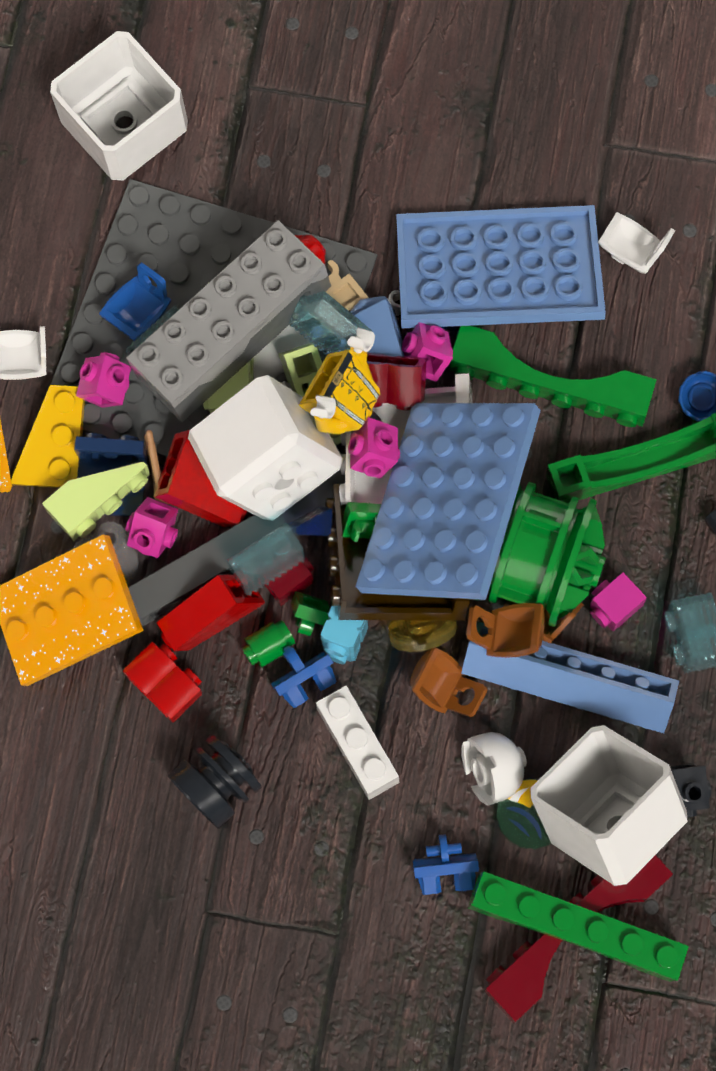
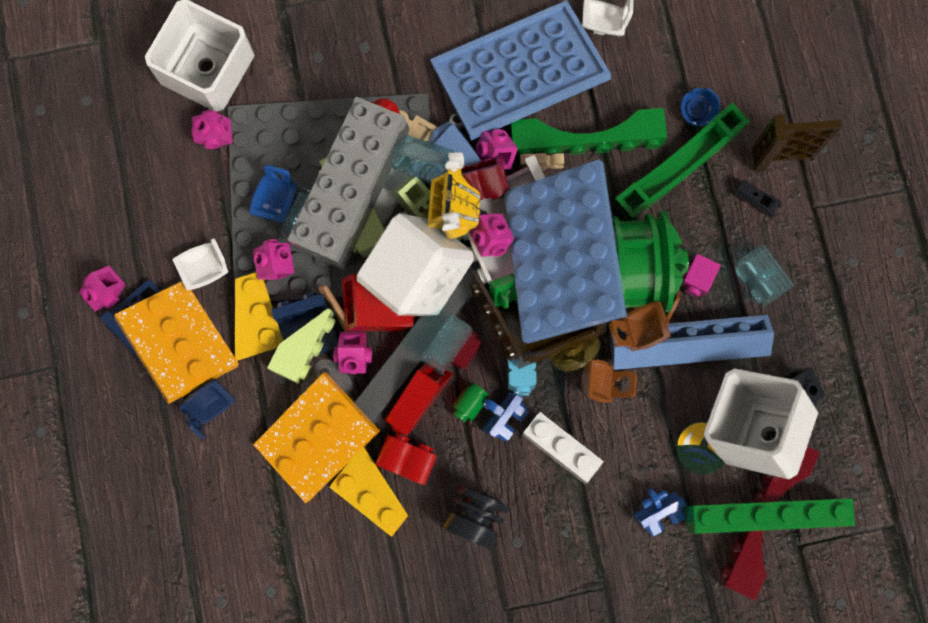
camera: 25 degrees left, 5 degrees up
(97, 199) = (211, 130): none -> dark pink brick
(102, 703) = (369, 493): none -> yellow wing
(308, 612) = (489, 368): green tile -> none
(314, 522) = (470, 305): clear blue slope -> none
(483, 390) = (545, 161): none -> tan plate
(495, 765) = (665, 425): white cylinder -> none

